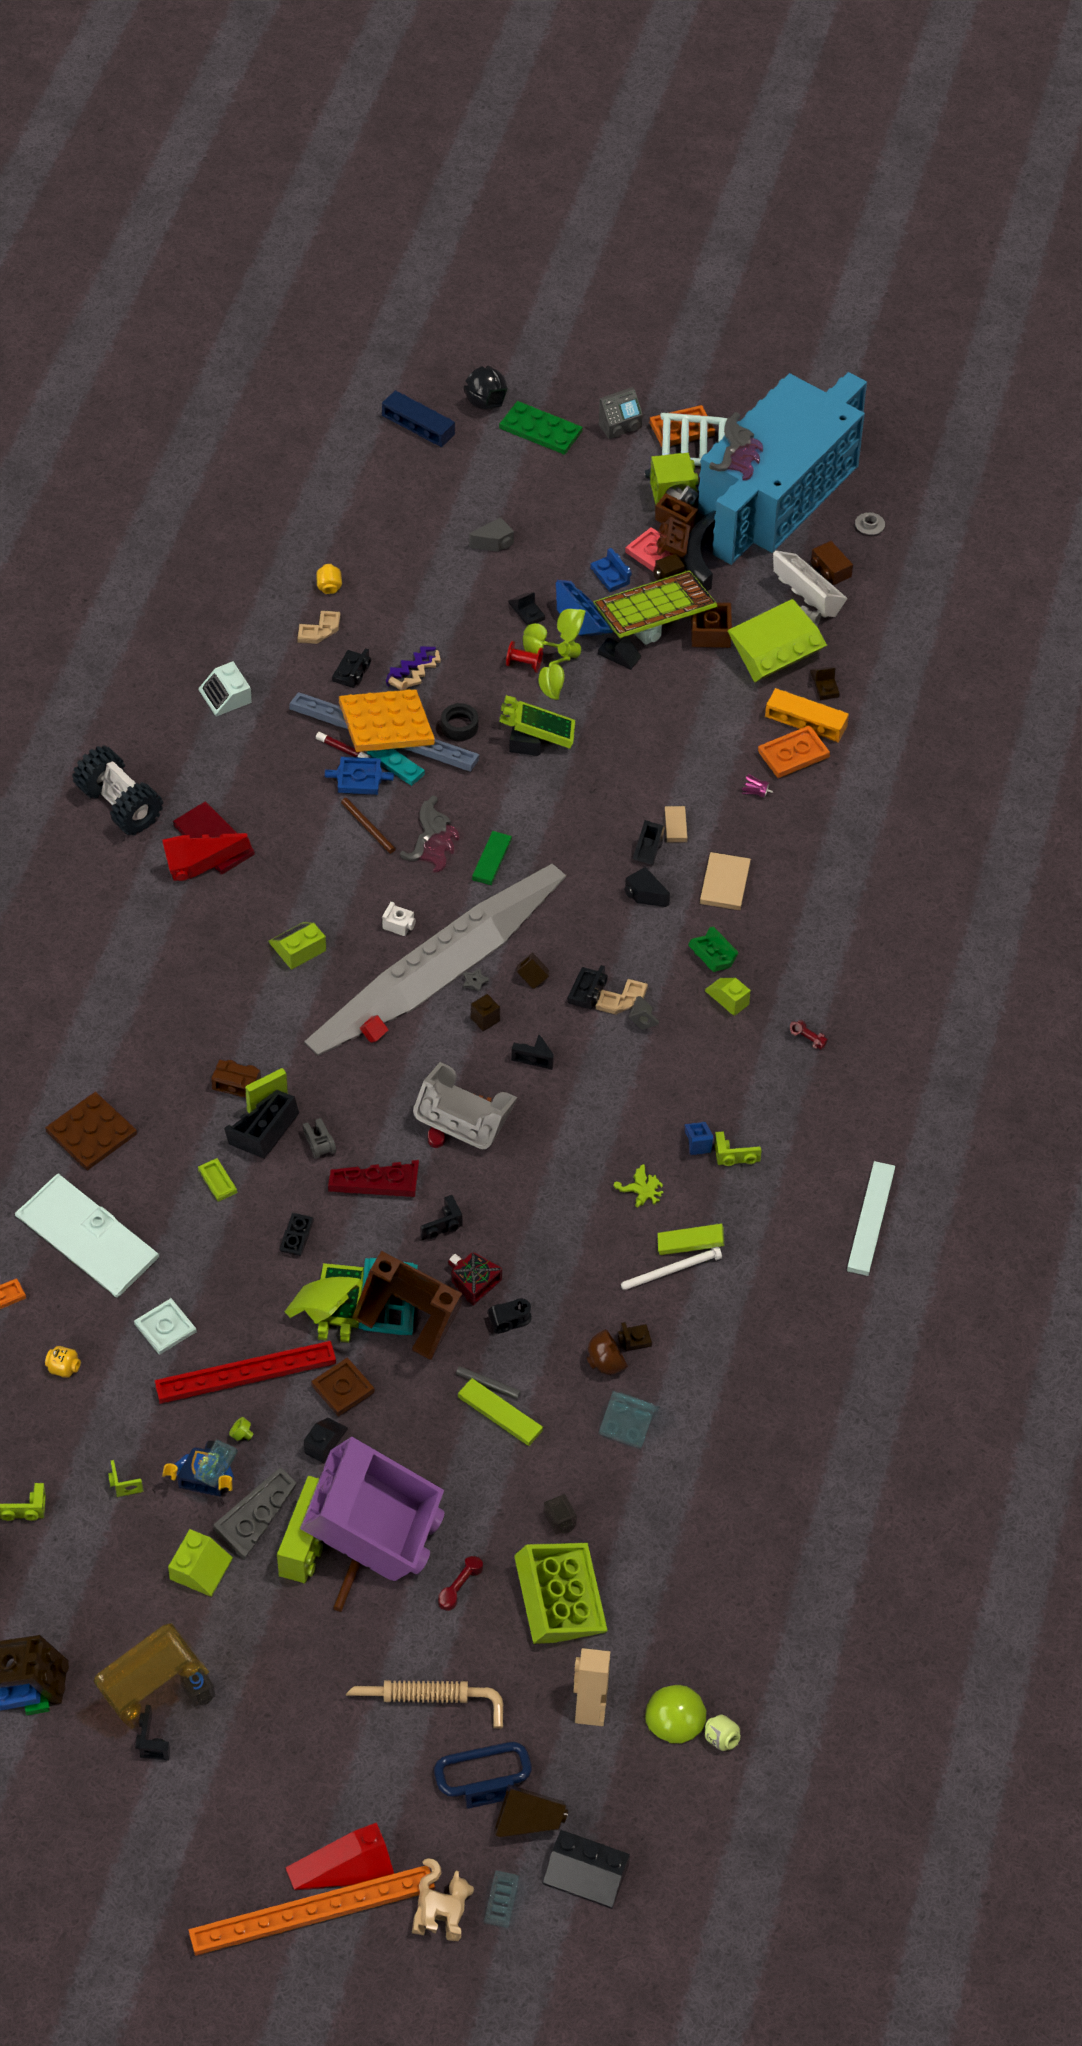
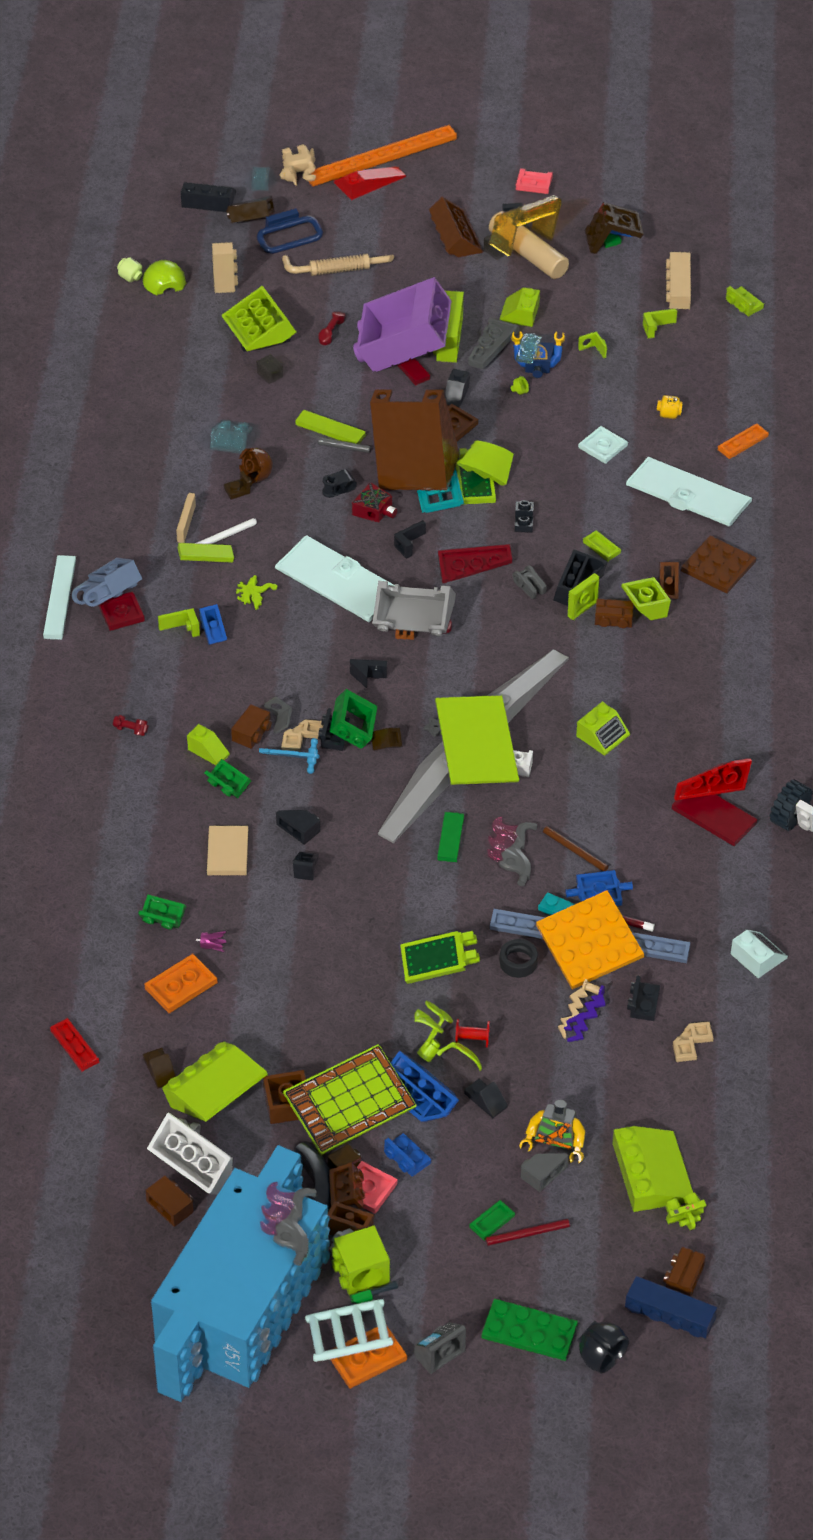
camera: 170 degrees right, 5 degrees down
(105, 1805) = (534, 181): none -> coral plate
(157, 1114) = (669, 578): none -> reddish brown slope
(170, 1699) = (537, 251): none -> tan cylinder
(196, 1078) = (648, 597): none -> lime slope
(245, 1372) = (532, 420): red plate -> none
(245, 1728) = (454, 229): none -> reddish brown slope
(329, 579) = (699, 1087): yellow head -> none
(373, 1028) = (511, 669): red piece -> none
(379, 485) = (687, 1214): none -> lime hips
(395, 524) = (651, 1166): none -> lime slope
(397, 441) = (685, 1271): none -> reddish brown brick
(440, 927) = (476, 740): none -> lime piece
(474, 560) = (558, 1128): none -> torso
(485, 1012) = (418, 694): dark brown brick -> none
(521, 498) = (527, 1232): none -> dark red bar
(541, 1185) = (332, 576): none -> light aqua door
(549, 512) = (492, 1220): none -> green tile
(550, 998) = (361, 708): none -> green window
(638, 969) = (311, 756): none -> dark azure piece
(675, 824) = (284, 896): tan tile -> none
(676, 1007) = (251, 726): none -> reddish brown brick
(706, 1296) = (186, 517): none -> tan tile
(801, 1181) = (121, 611): none -> dark red plate
(803, 712) = (172, 1021): light orange brick -> none
(803, 819) = (162, 911): none -> green bracket
(820, 1204) = (108, 582): none -> sand blue brick
(870, 529) = (137, 1275): light grey piece -> none
(903, 716) = (74, 1044): none -> red tile

